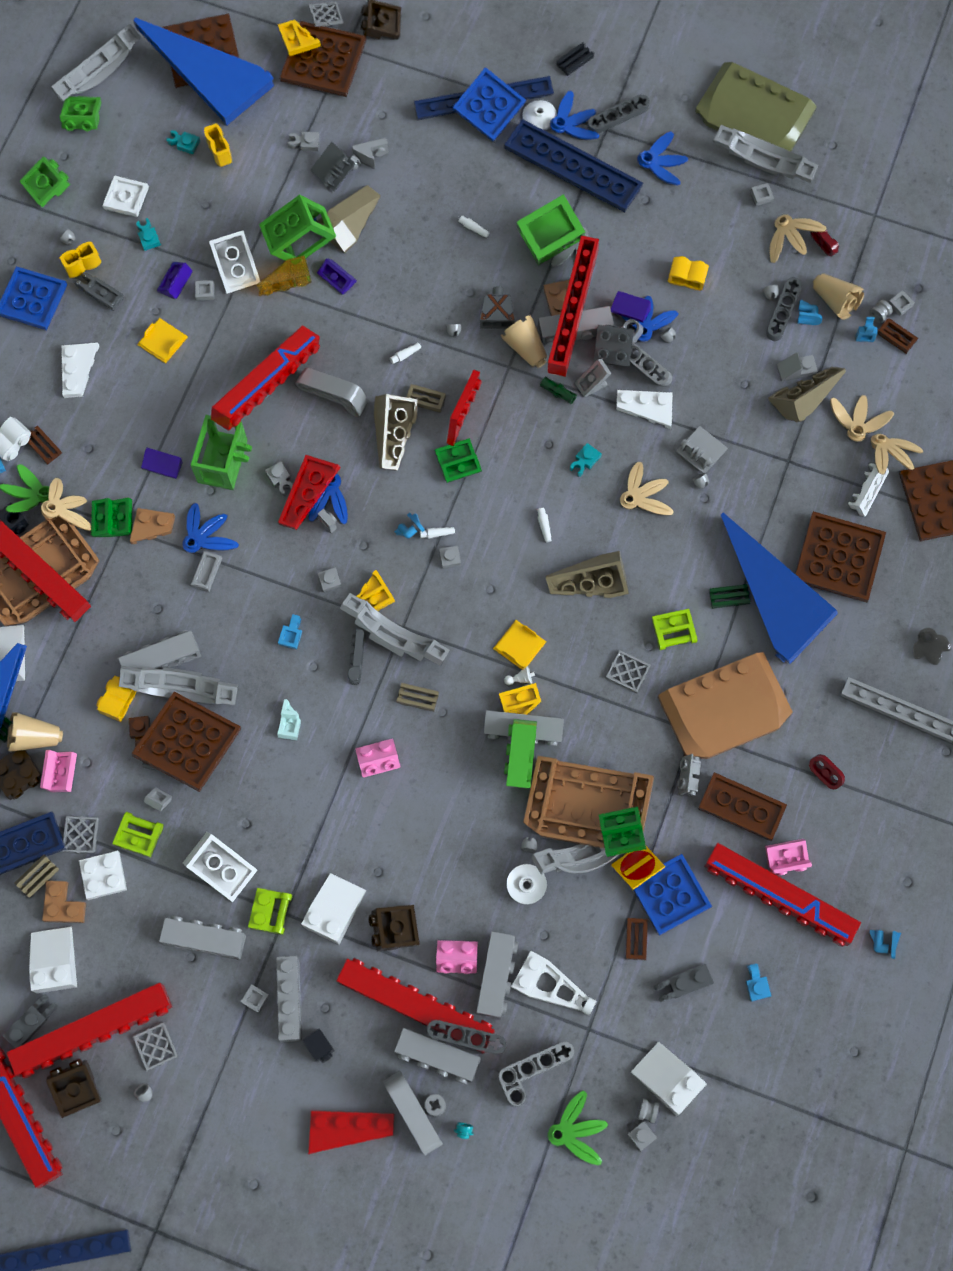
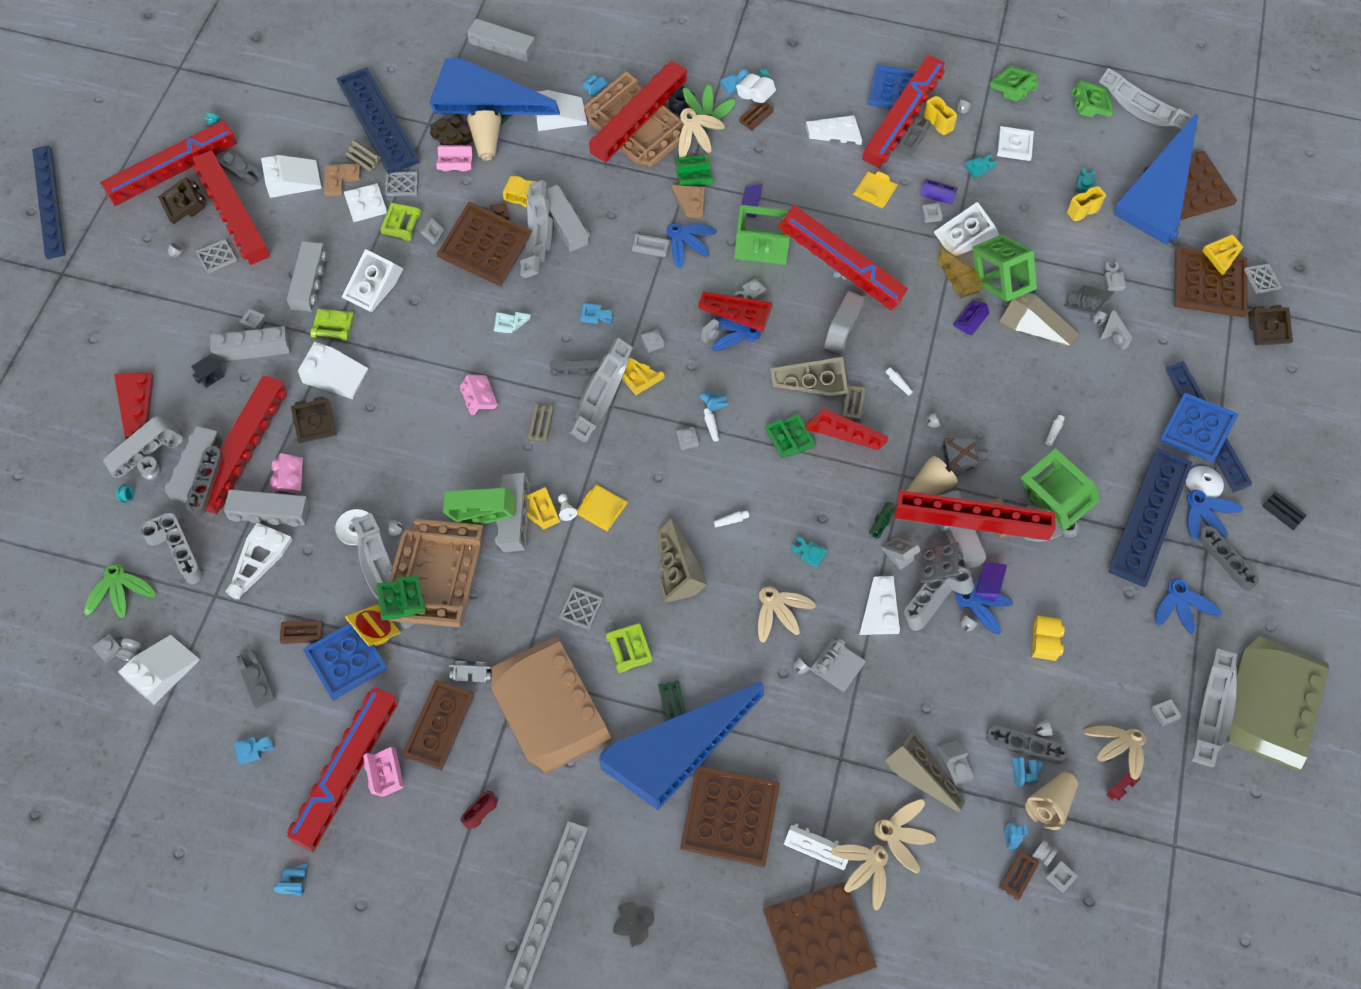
camera: 80 degrees right, 10 degrees down
(71, 293) = (903, 111): none -> red brick

